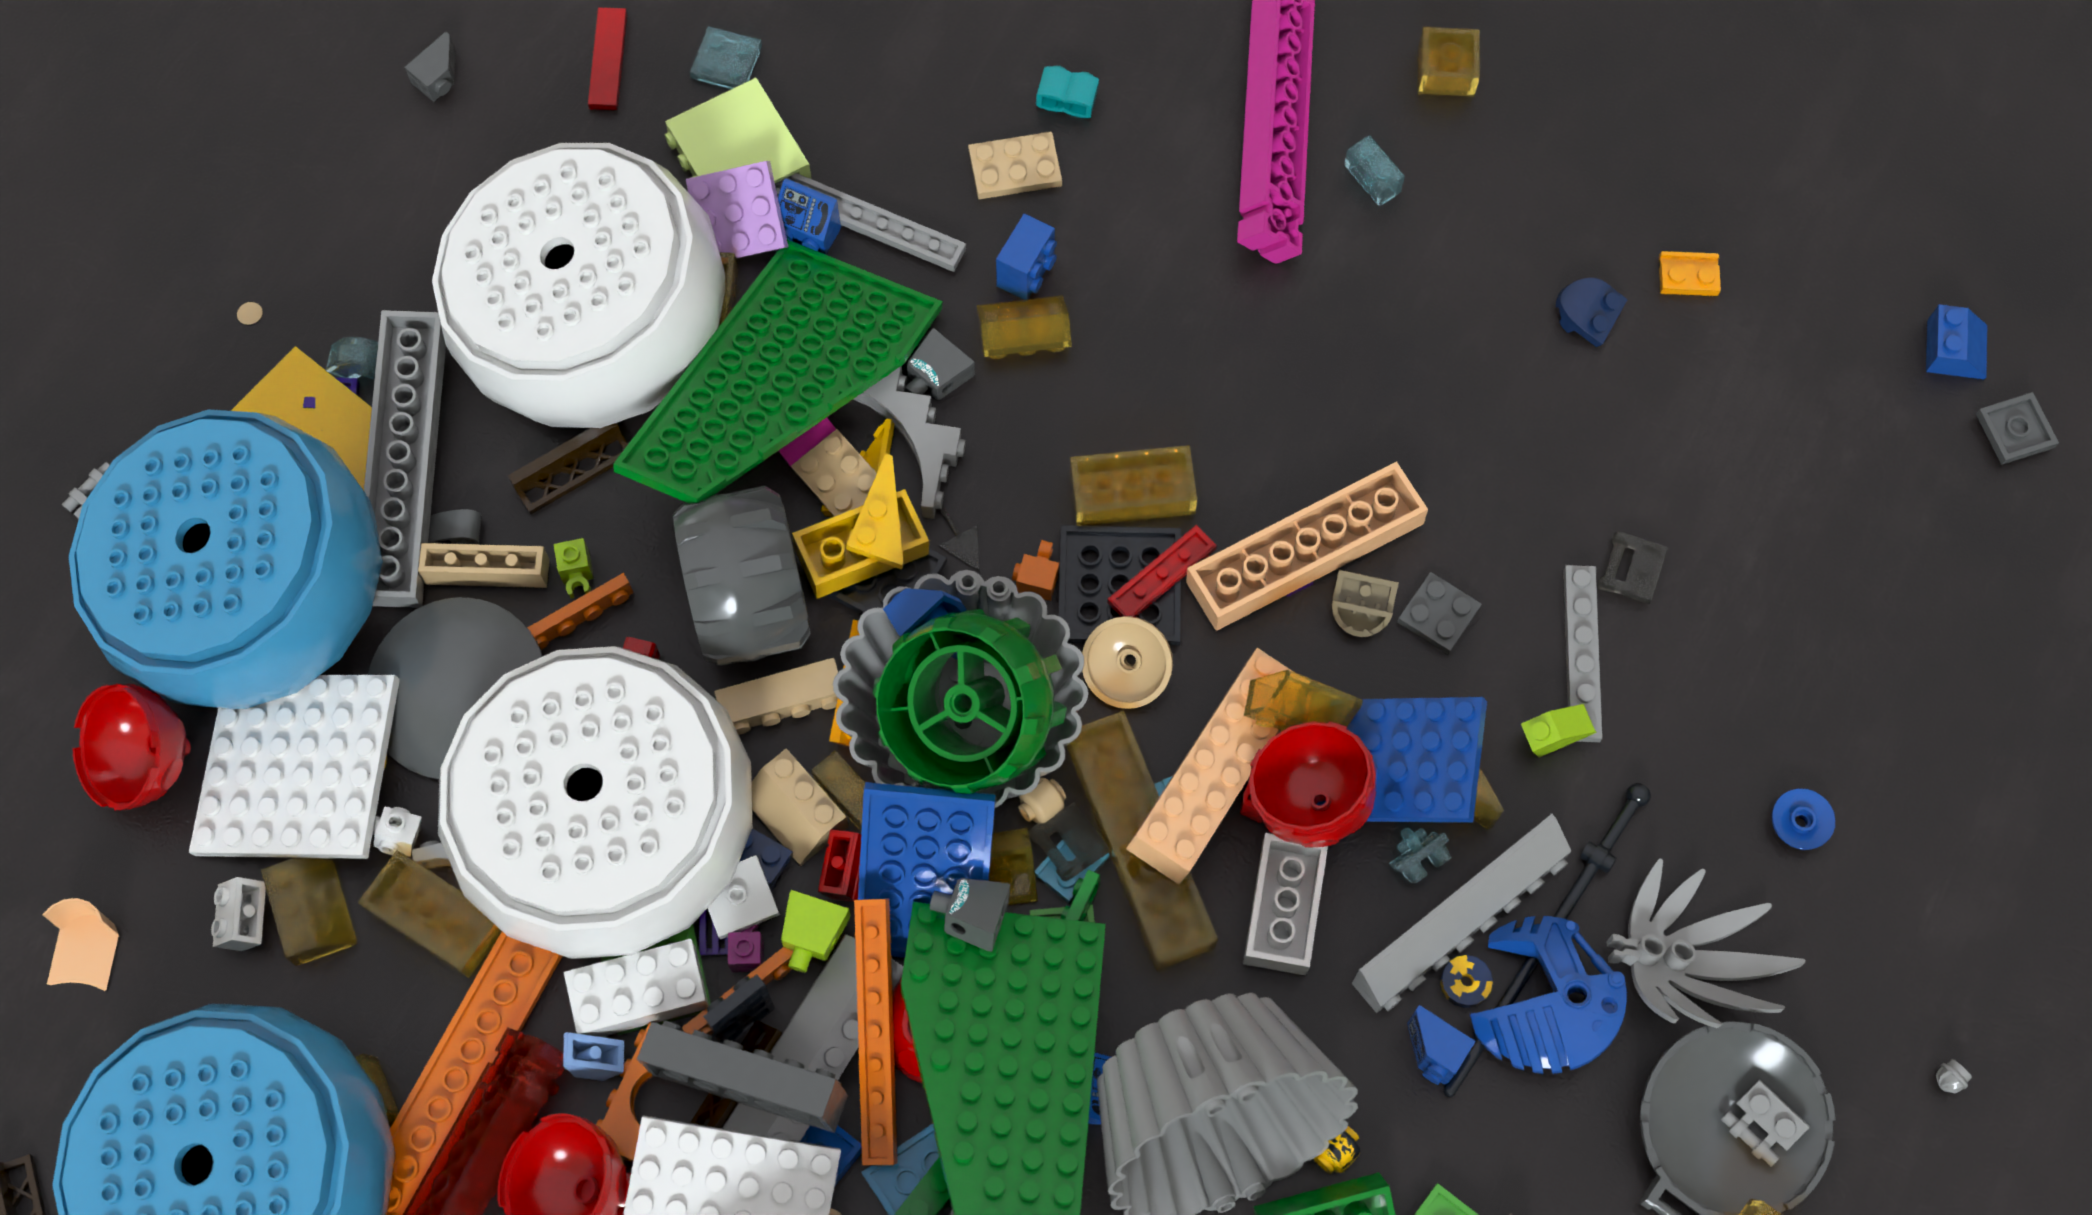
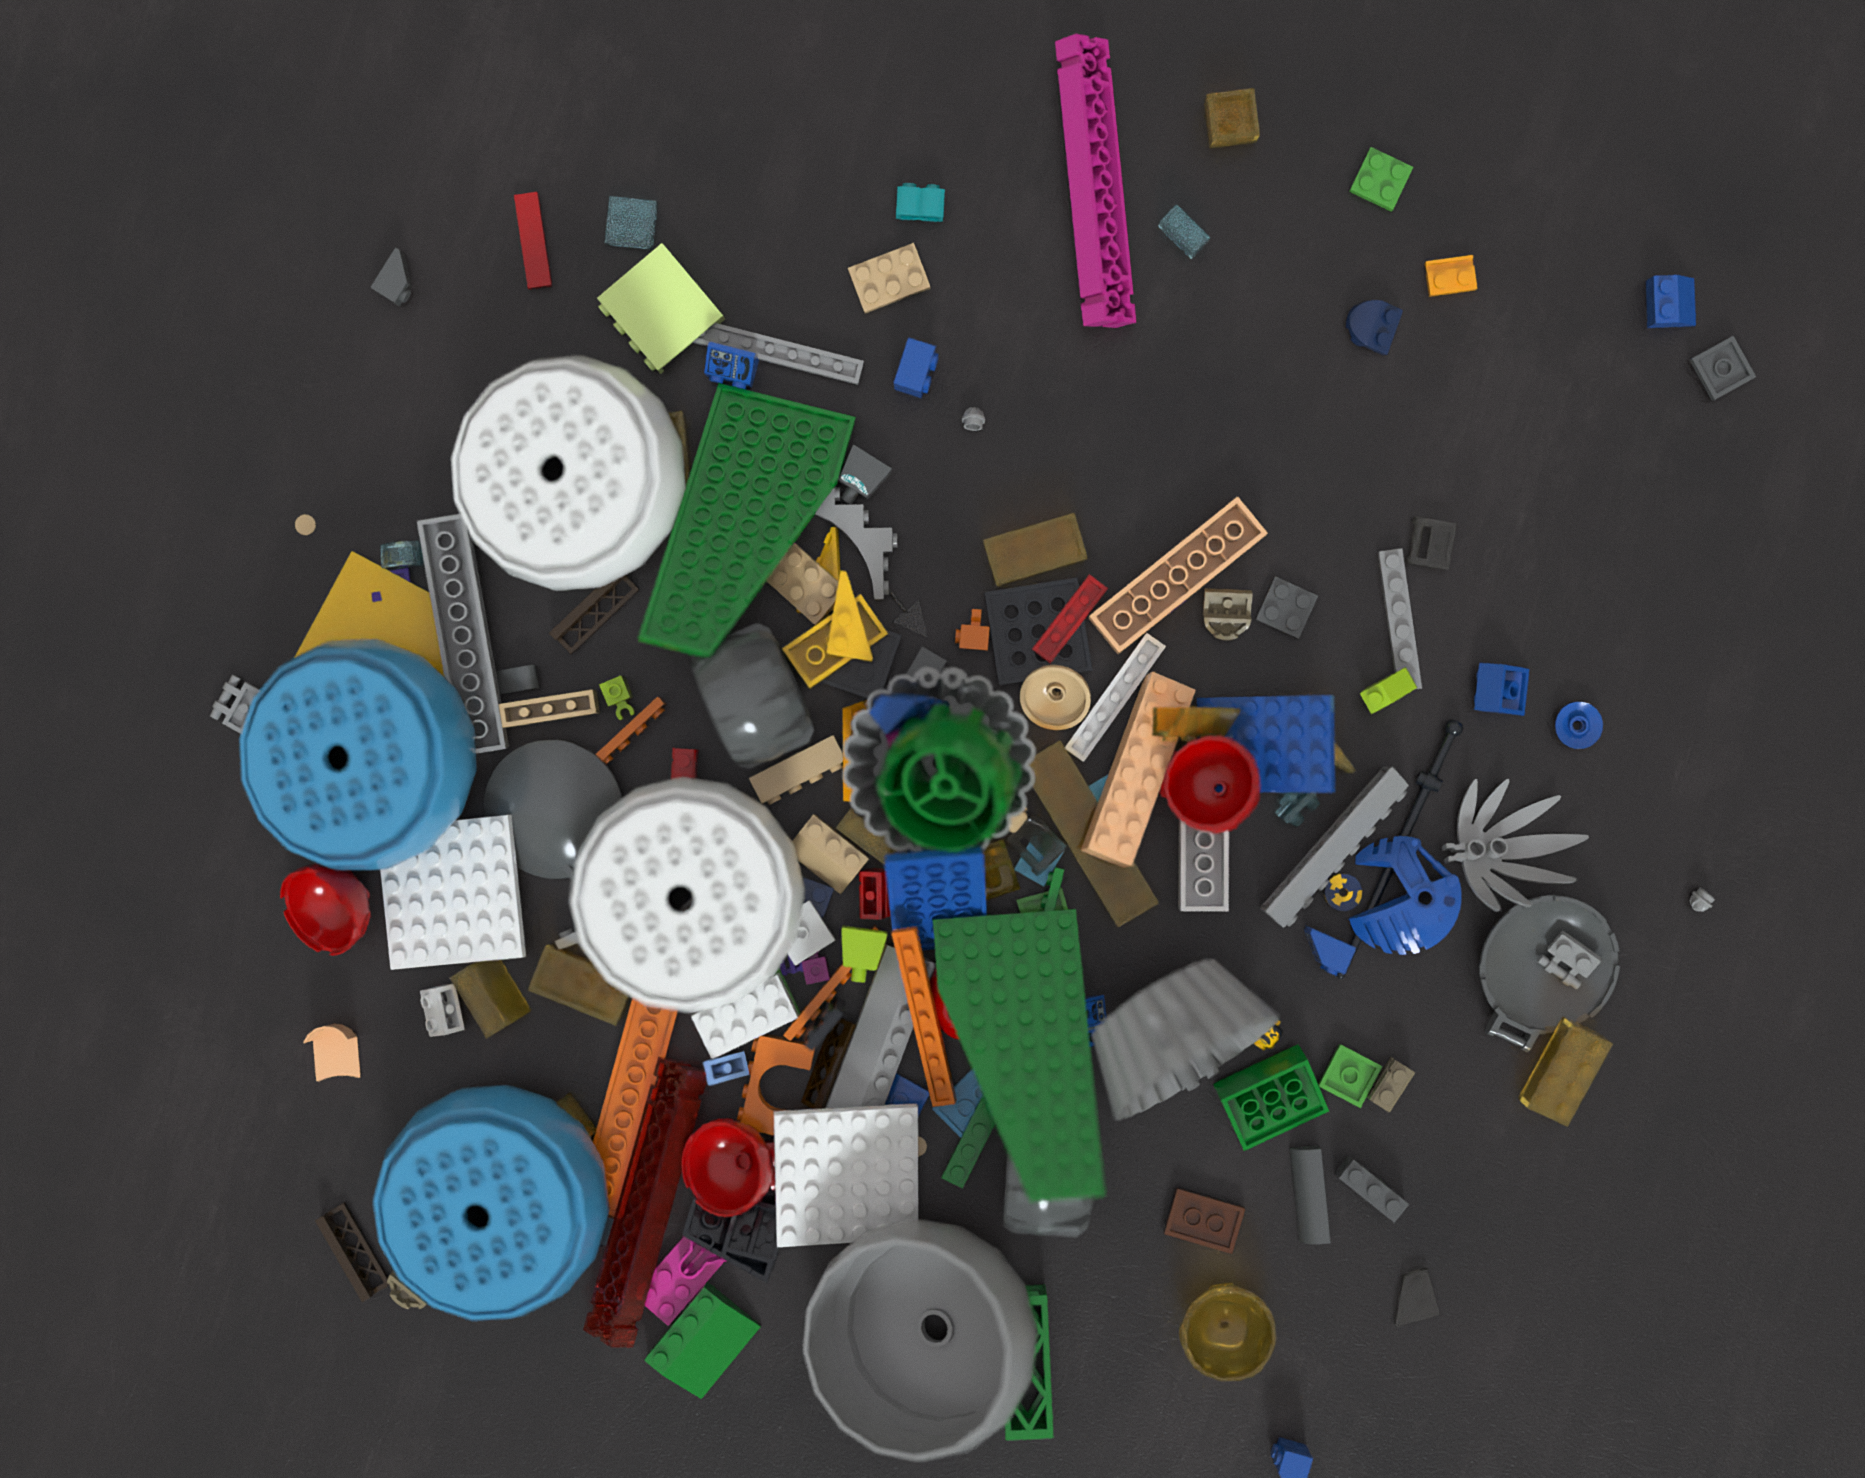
camera: 15 degrees left, 20 degrees up
(396, 831) = (547, 925): white brick -> none
(742, 208) = (676, 371): lavender plate -> none
(743, 1076) = (838, 1072): dark grey brick -> none
(973, 910) = (979, 924): dark grey torso -> none
(1024, 326) = (924, 424): clear yellow slope -> none
(1085, 330) = (973, 419): none -> light grey plate
(1203, 680) = (1115, 697): none -> white plate
(1617, 158) = (1381, 179): none -> bright green plate
(1706, 756) = (1501, 689): none -> blue slope

